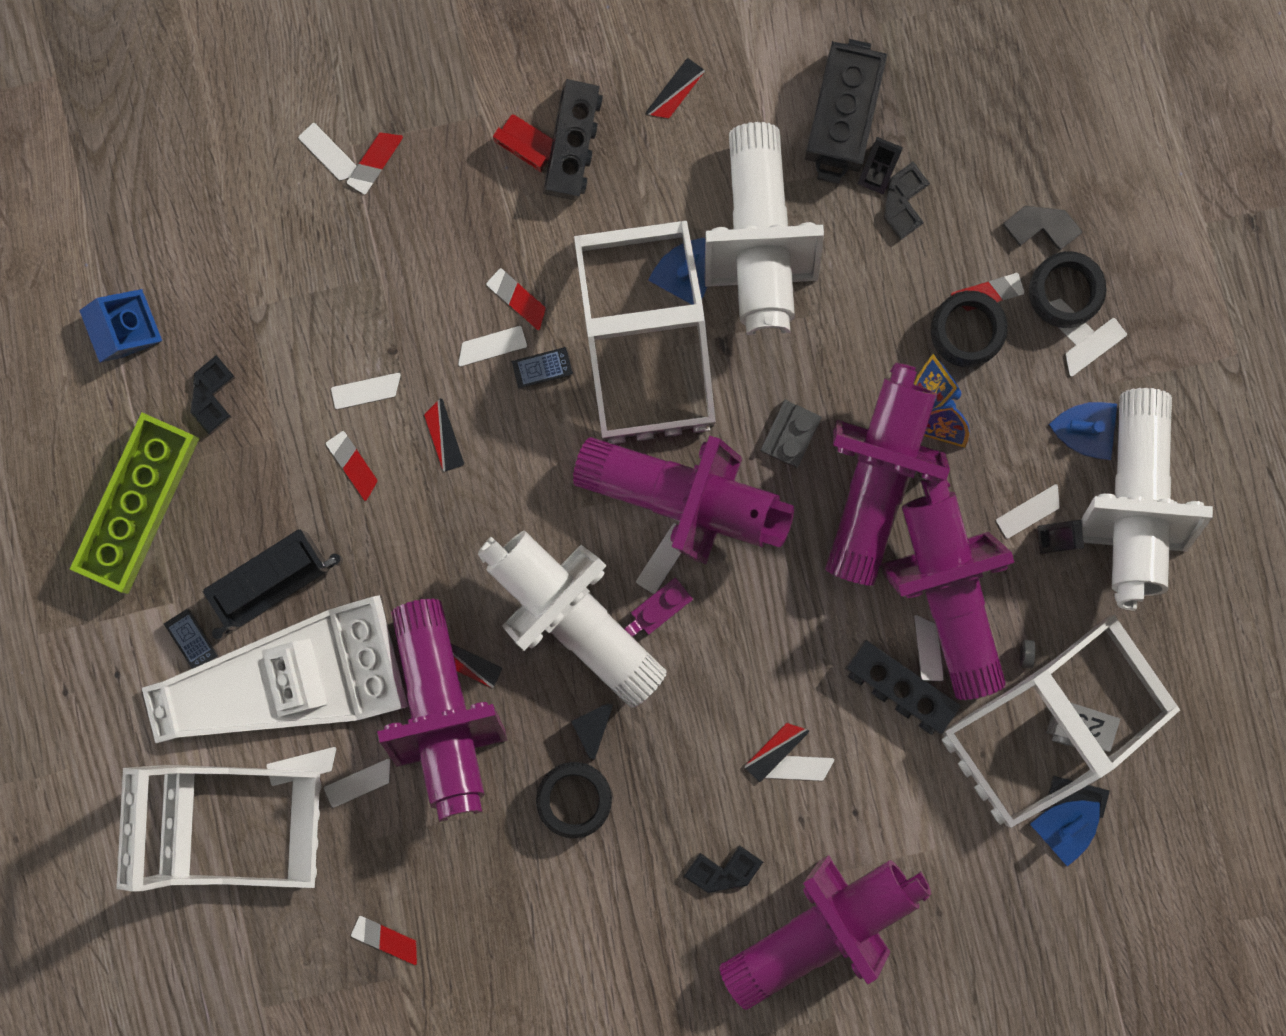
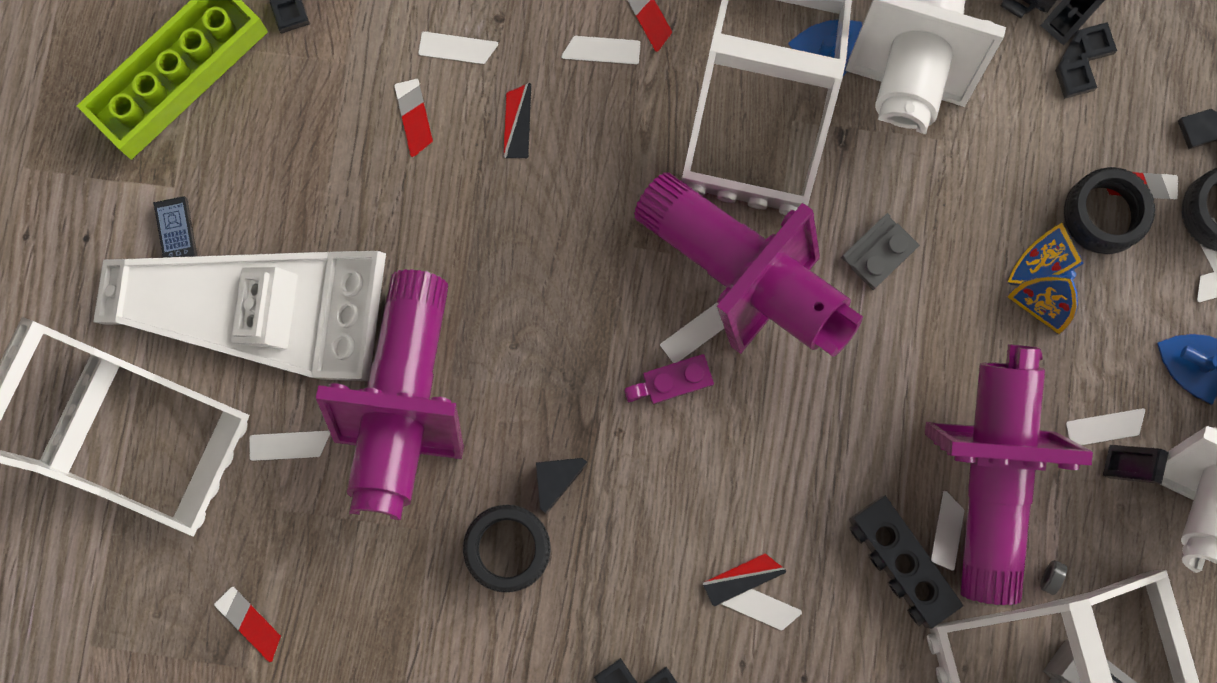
camera: 20 degrees right, 5 degrees down
(266, 580) = (274, 195): black container -> none
(317, 761) = (256, 406): white sticker -> none
(475, 666) = (457, 368): black sticker -> none
(542, 368) = (645, 89): tile -> none
(558, 601) = (575, 336): white piece -> none
(887, 459) = (969, 321): magenta piece -> none

